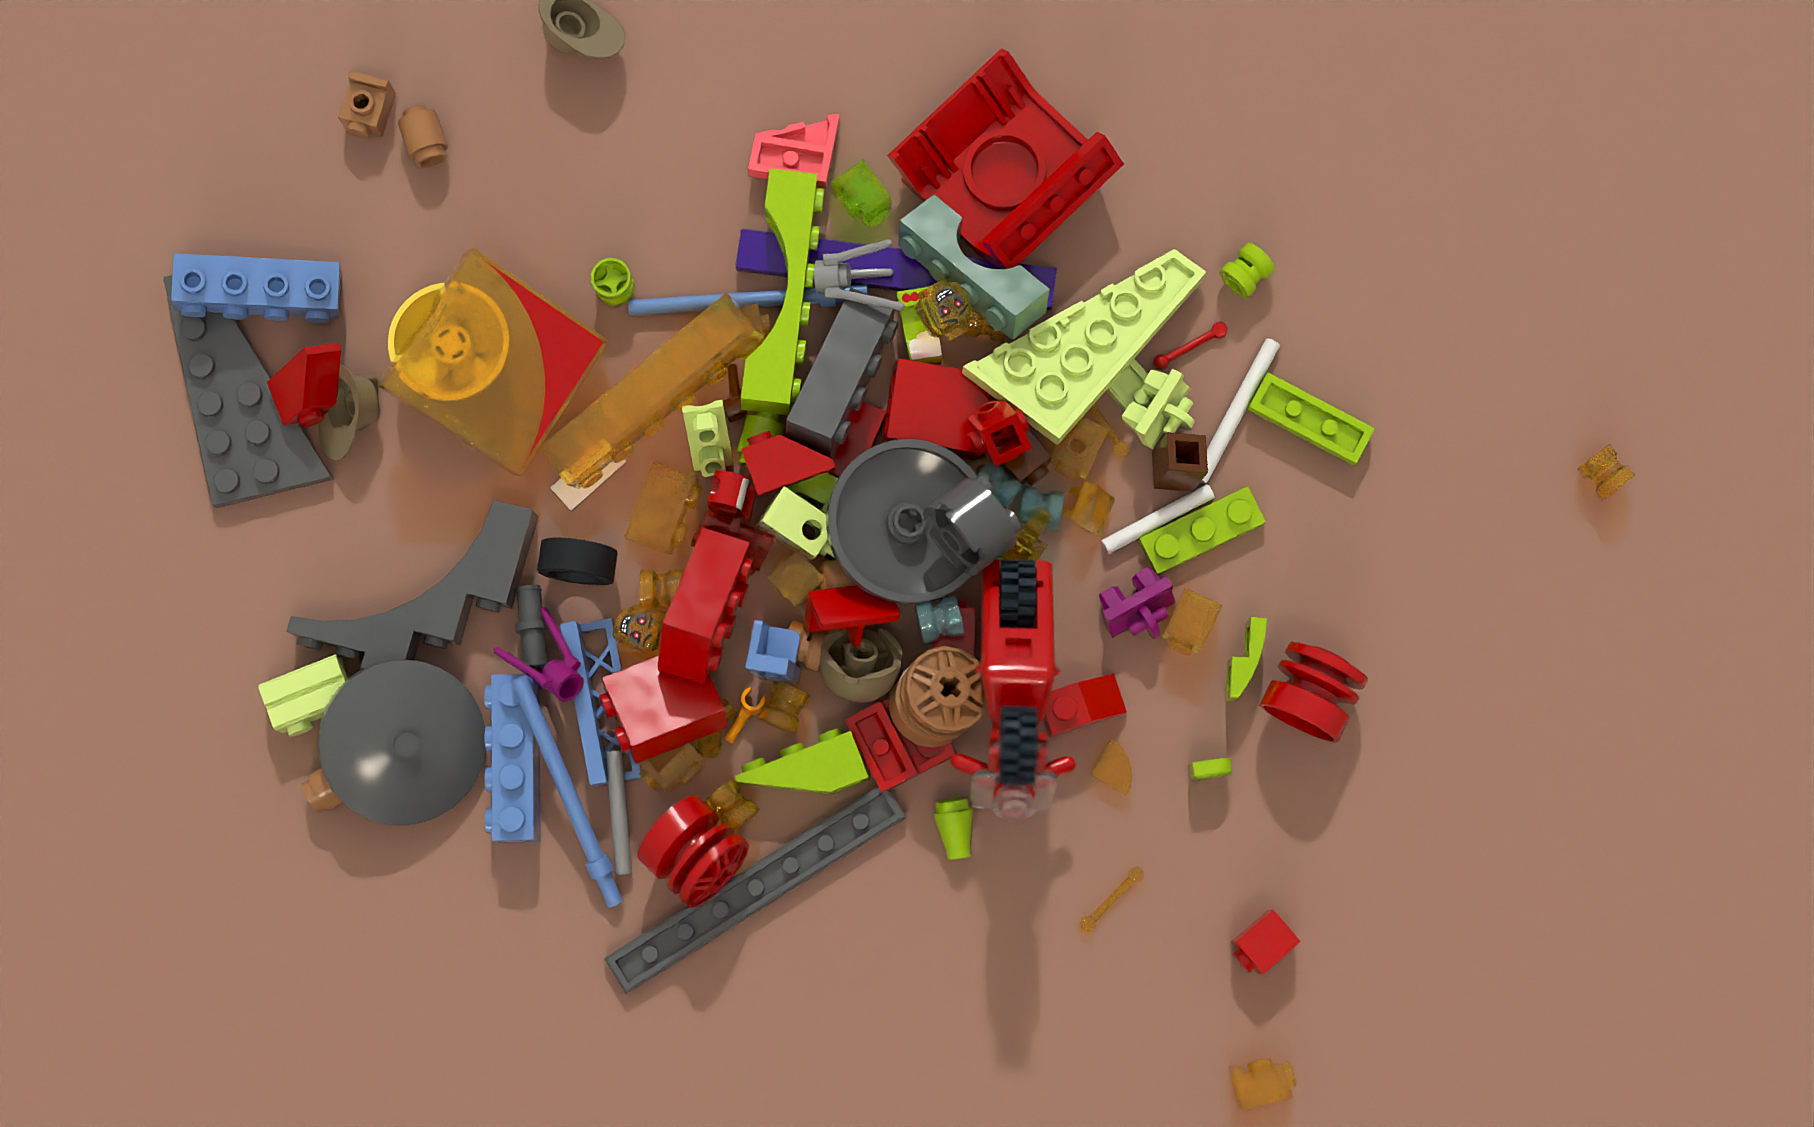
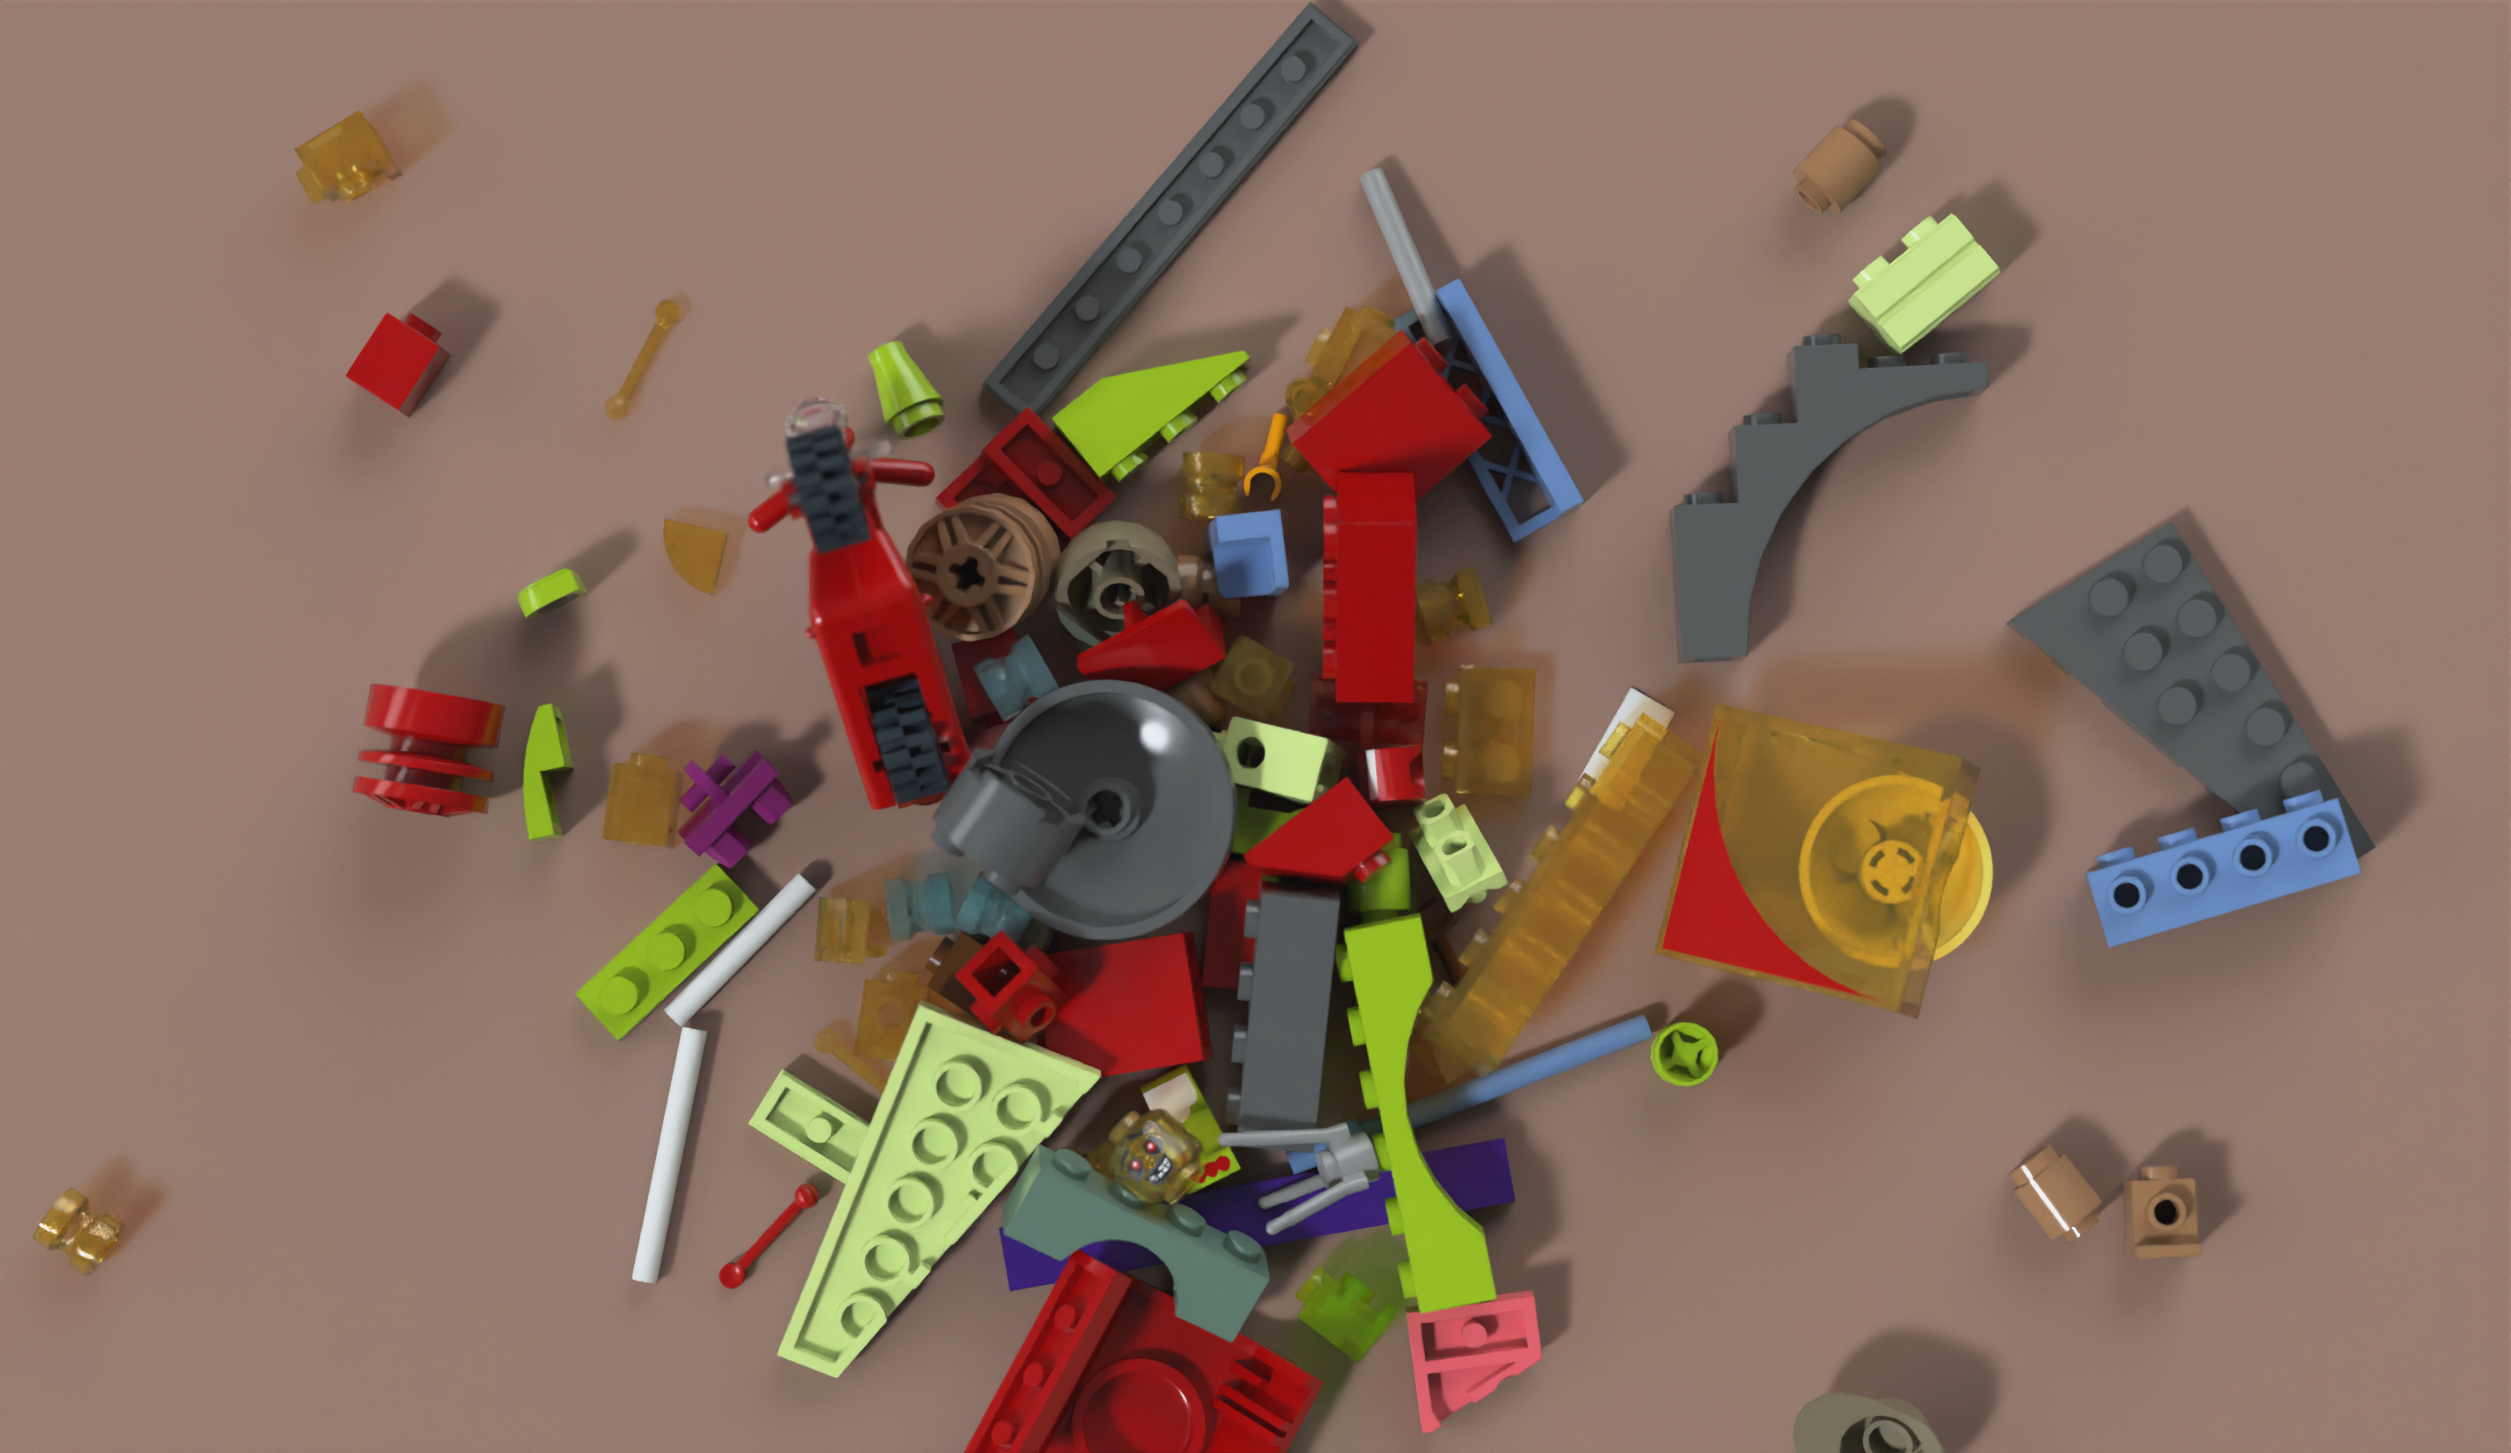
camera: 165 degrees right, 5 degrees up
(307, 385) = (2089, 739): red slope -> none
(355, 409) = (2021, 727): dark tan piece -> none
(401, 742) = (1758, 255): dark grey dish -> none
(515, 765) = (1584, 286): medium blue brick -> none
(531, 626) = (1627, 489): dark grey pin -> none
(557, 676) = (1559, 416): magenta plant -> none
(577, 561) = (1589, 602): black tyre -> none
(598, 864) = (1413, 175): medium blue bar -> none
(639, 630) = (1458, 533): clear yellow head -> none
(692, 851) = (1268, 224): red wheel -> none
(727, 797) = (1256, 322): clear yellow wheel -> none
(1028, 544) = (921, 852): clear yellow plate -> none
(1083, 705) = (763, 631): red slope -> none
(1166, 411) = (776, 1140): yellowish green hips -> none
(1179, 461) = (730, 1040): reddish brown brick -> none
(1247, 270) = (722, 1365): lime wheel -> none
(1311, 419) = (551, 1175): lime plate -> none

